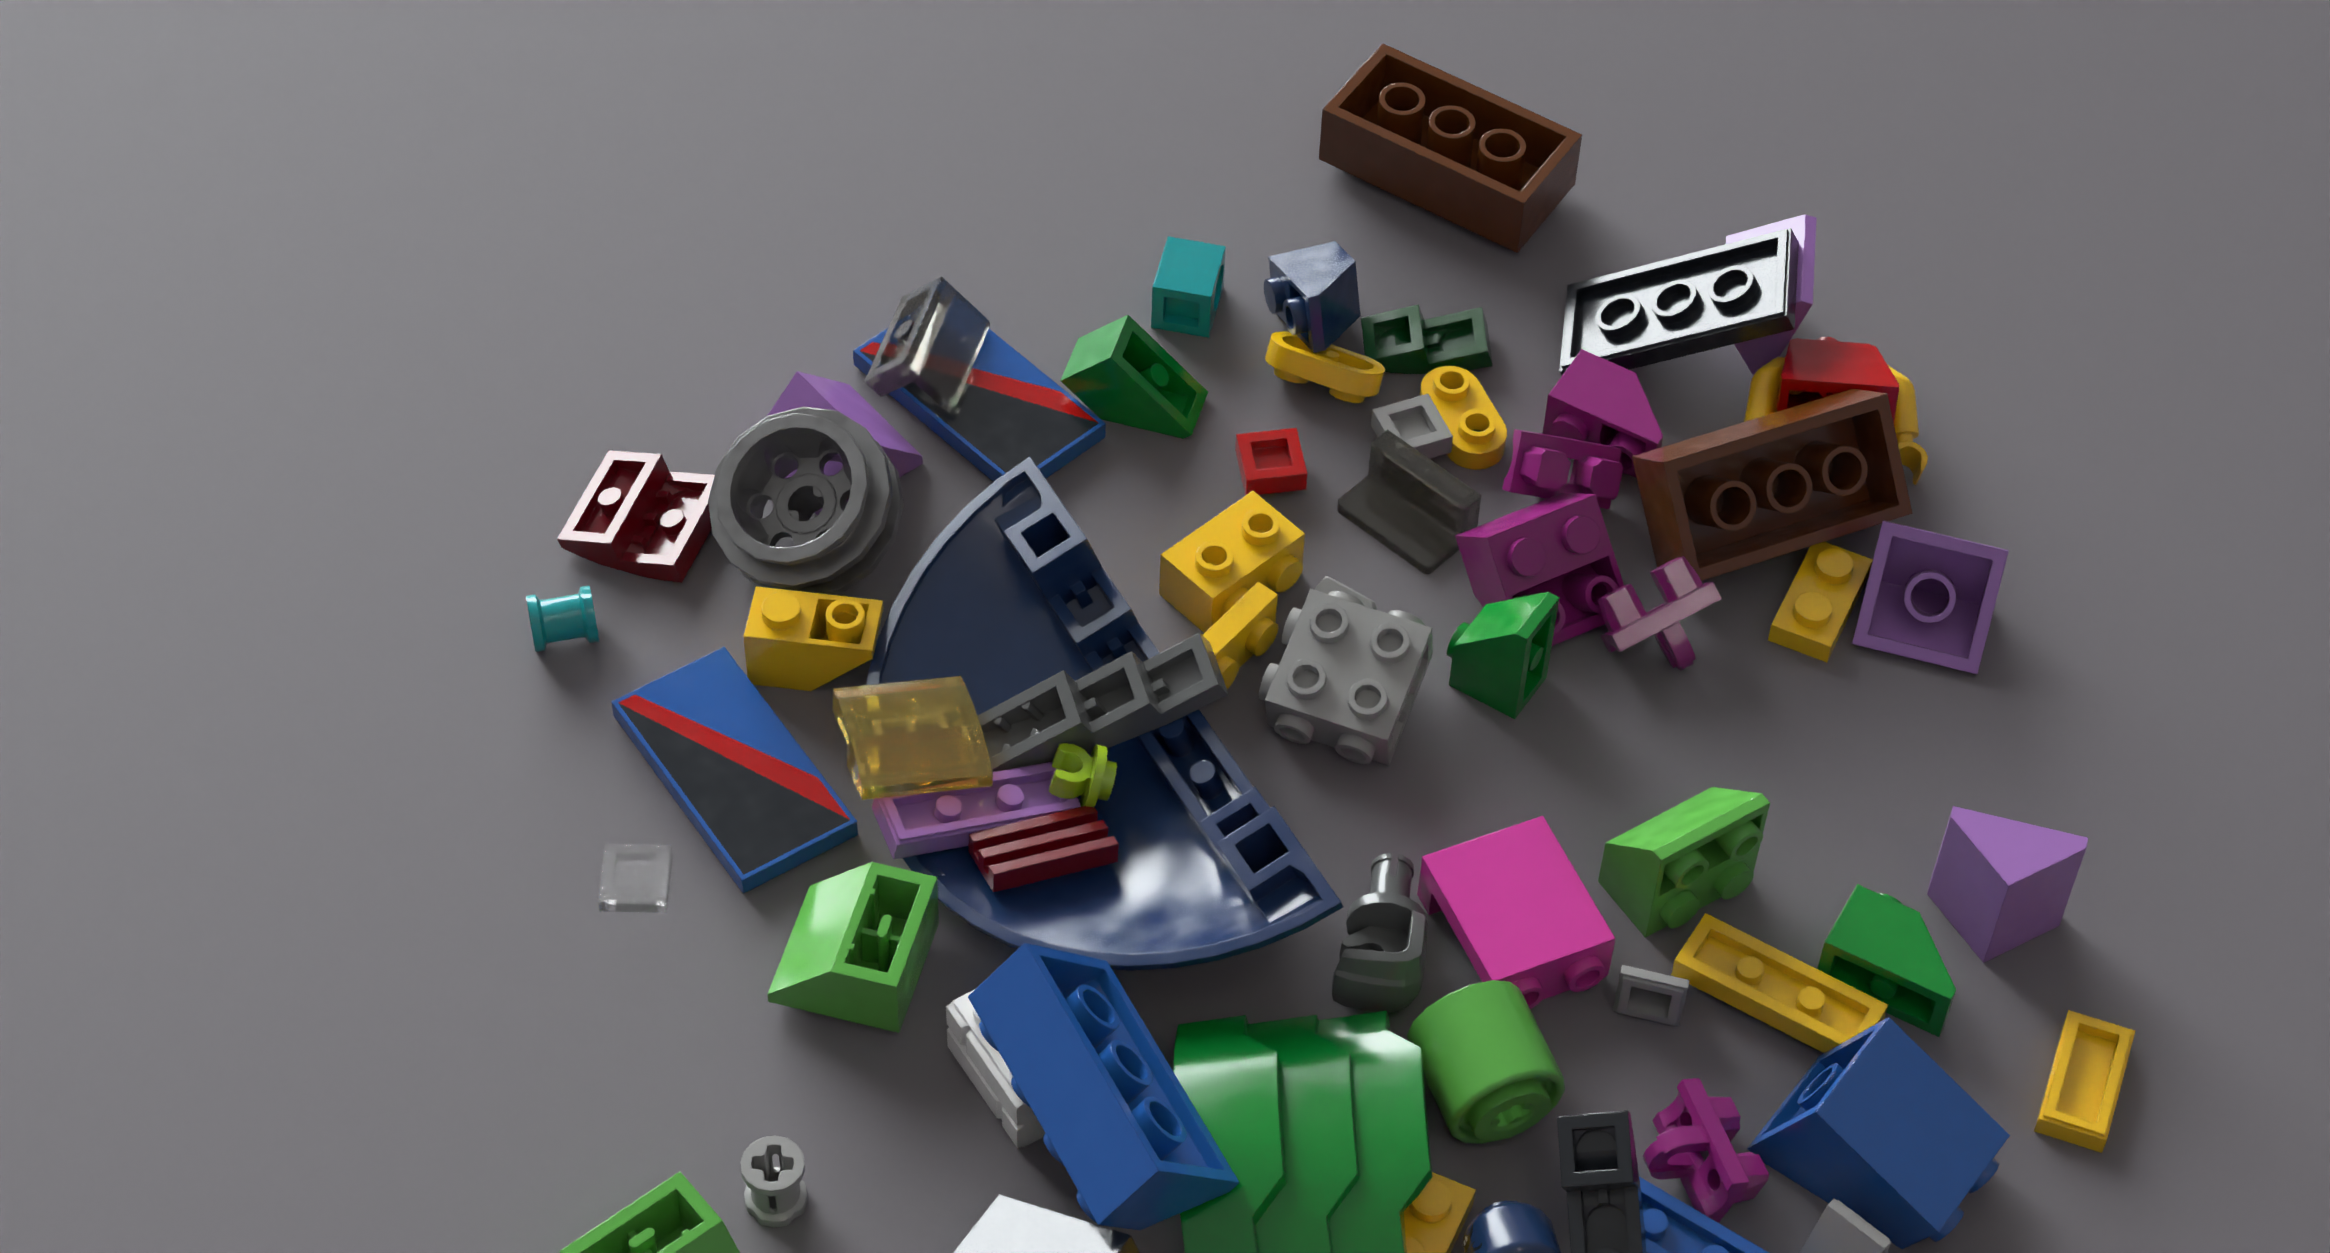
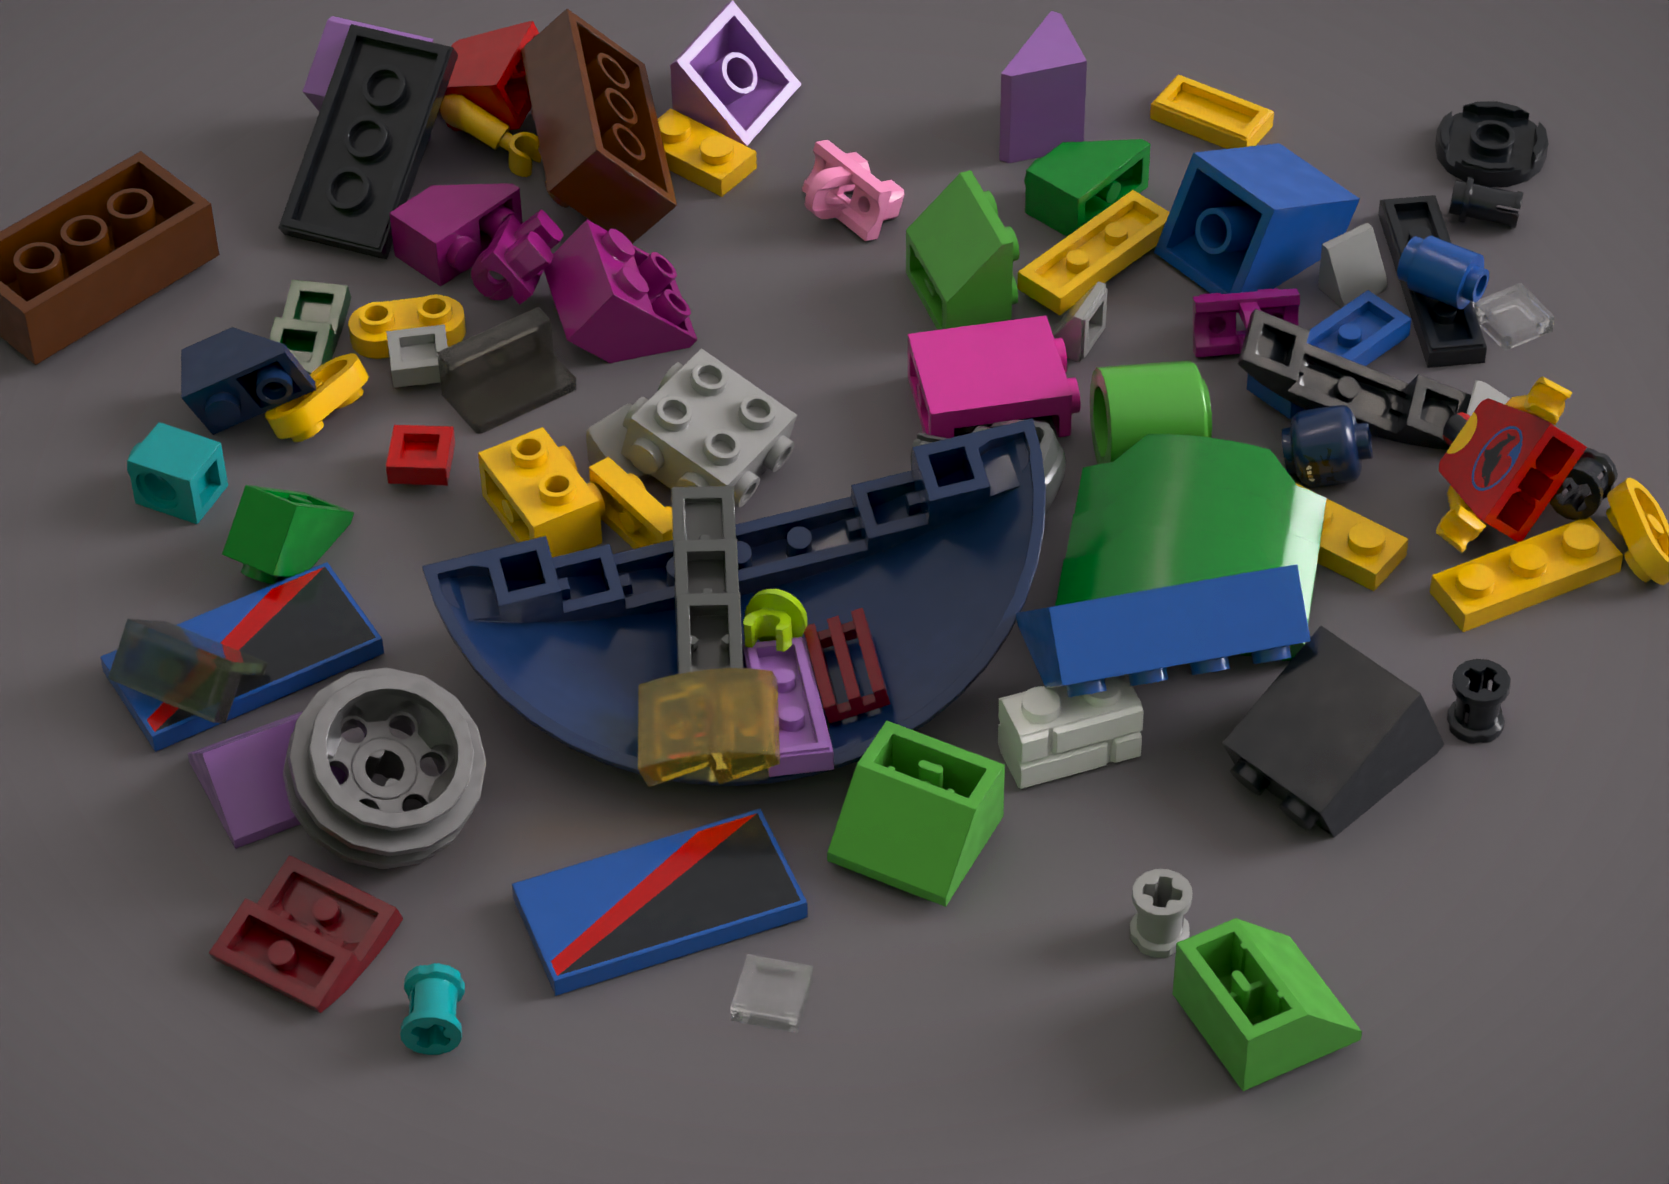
camera: 75 degrees left, 5 degrees down
(807, 637) = (536, 804): yellow slope -> none
(1505, 652) = (716, 315): green slope -> none
(1682, 595) = (697, 253): hips -> none
(1779, 759) = (844, 173): none -> bright pink hips

